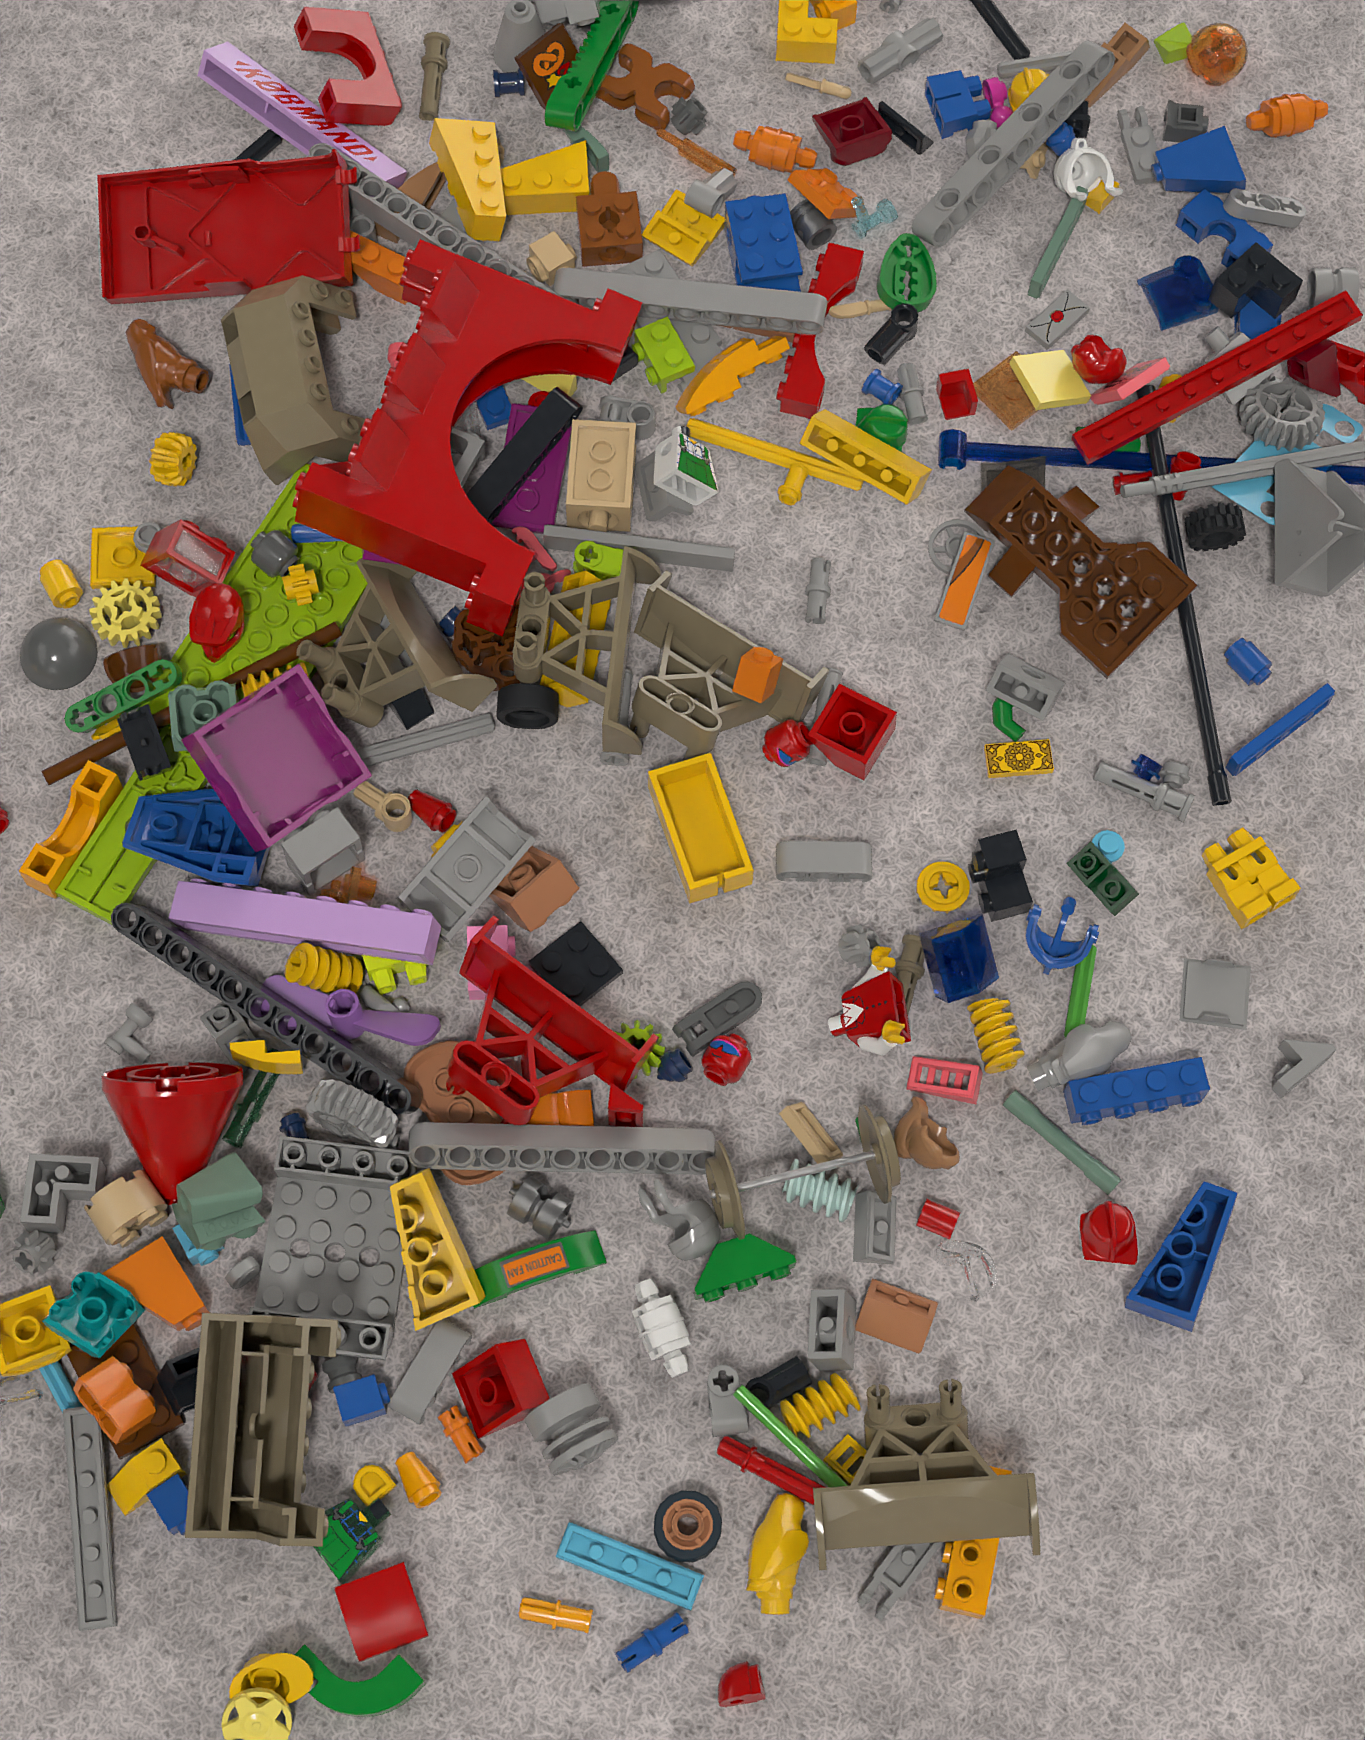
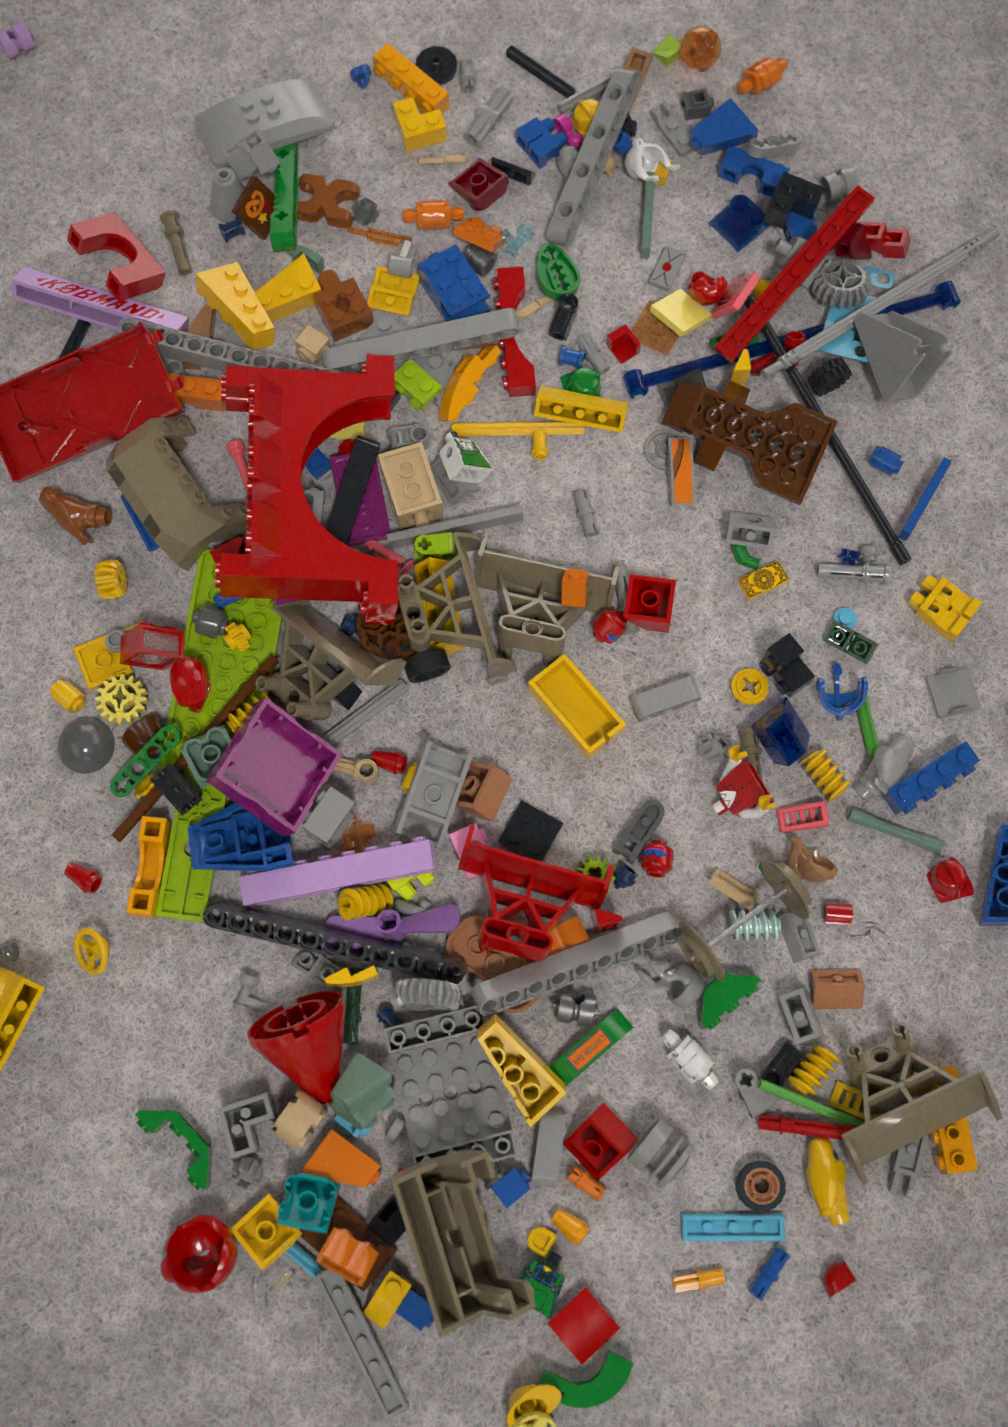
camera: 20 degrees left, 5 degrees up
(1095, 477) = (742, 369): none -> yellow slope

